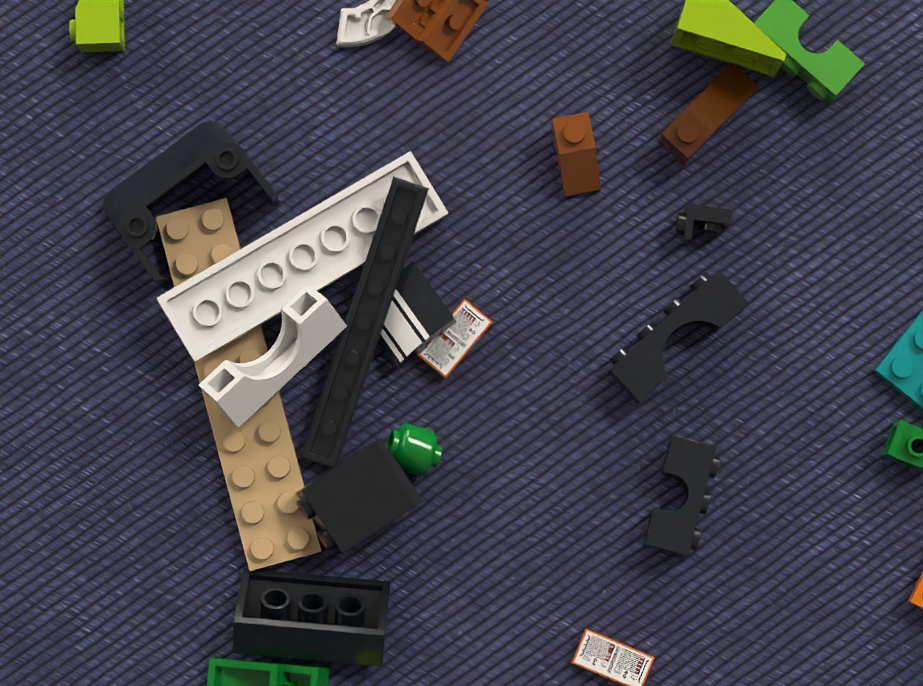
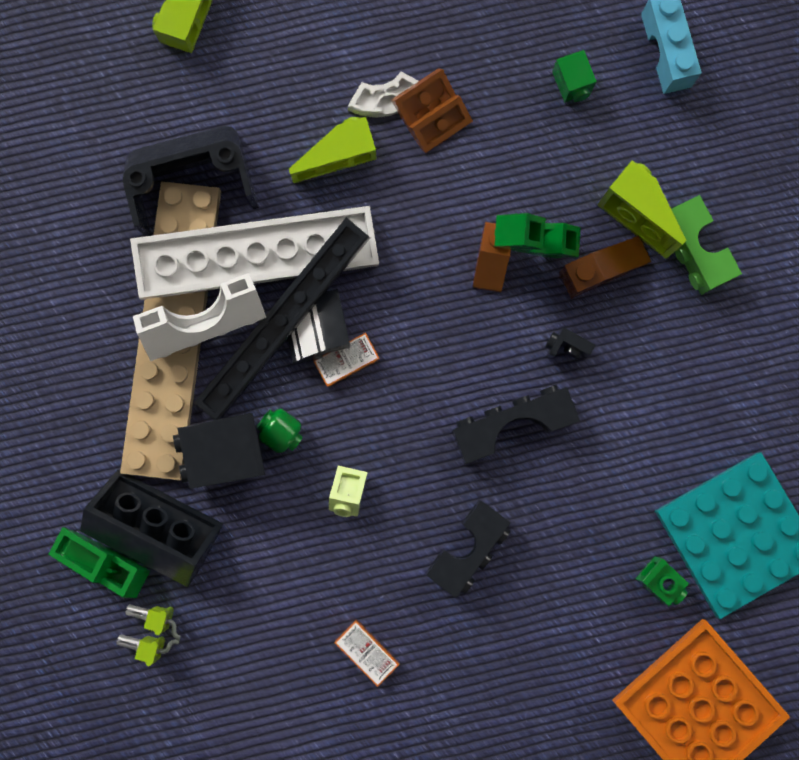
camera: 25 degrees right, 0 degrees up
(351, 95) = (341, 148): none -> lime slope
(518, 488) = (347, 491): none -> yellowish green bracket
(618, 113) = (533, 236): none -> green arch

